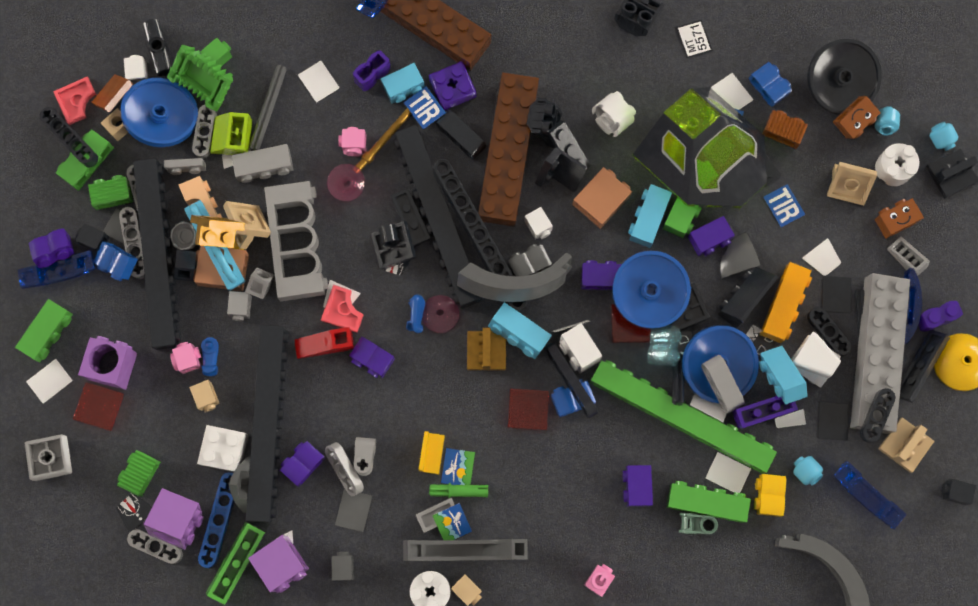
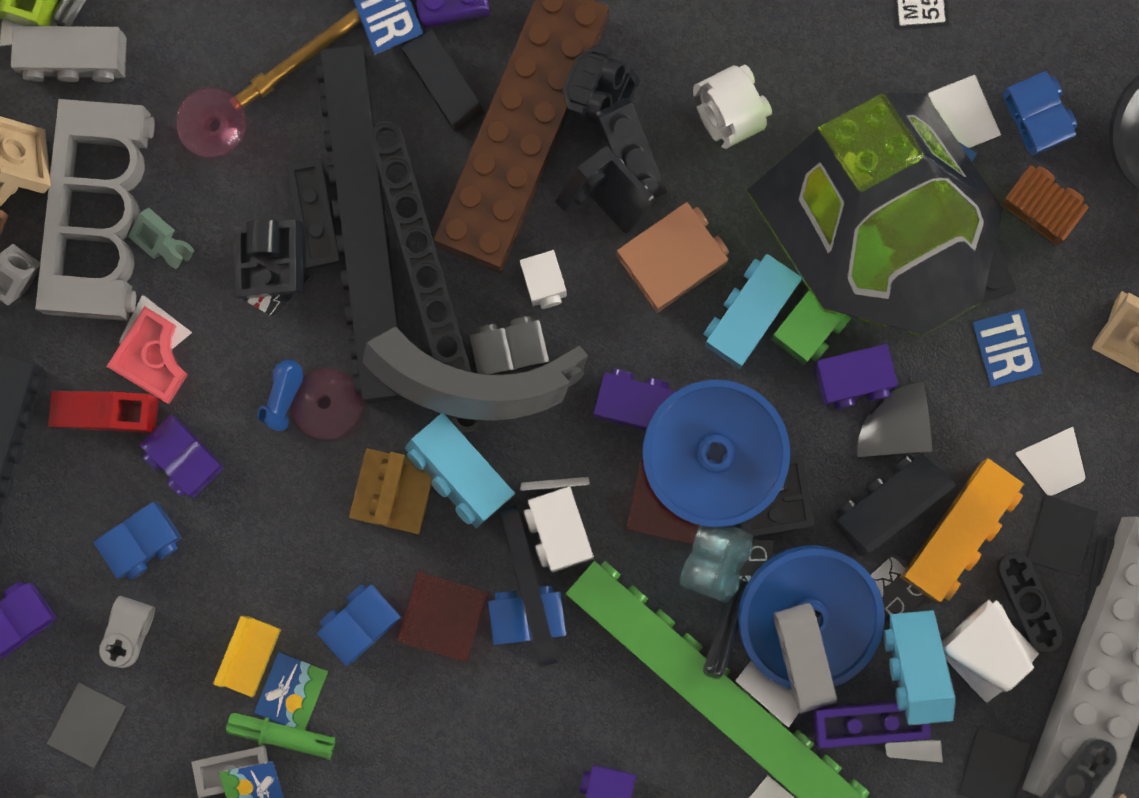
camera: 20 degrees right, 5 degrees up
(330, 248) = (155, 239): none -> sand green plate
(344, 469) = (84, 648): light grey beam -> none
(353, 141) = (242, 49): bright pink brick -> none
(359, 406) = (138, 541): none -> blue brick
(486, 422) = (358, 624): none -> blue brick

